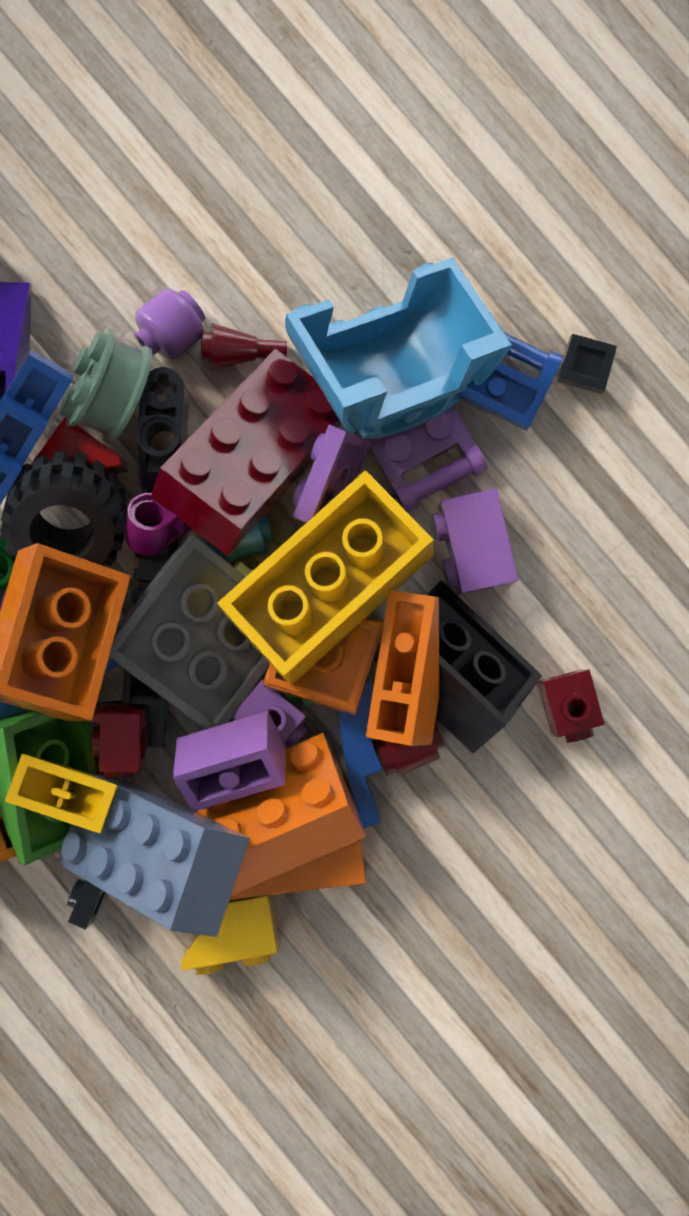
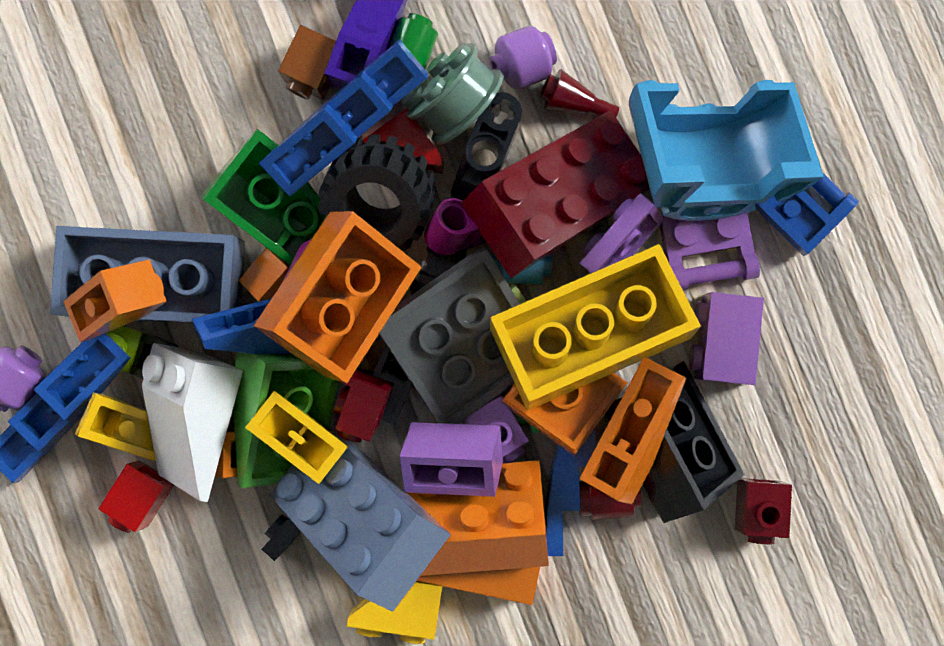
camera: 25 degrees right, 0 degrees up
(52, 340) = (417, 36): none -> green brick
(587, 363) = (877, 215): black plate -> none

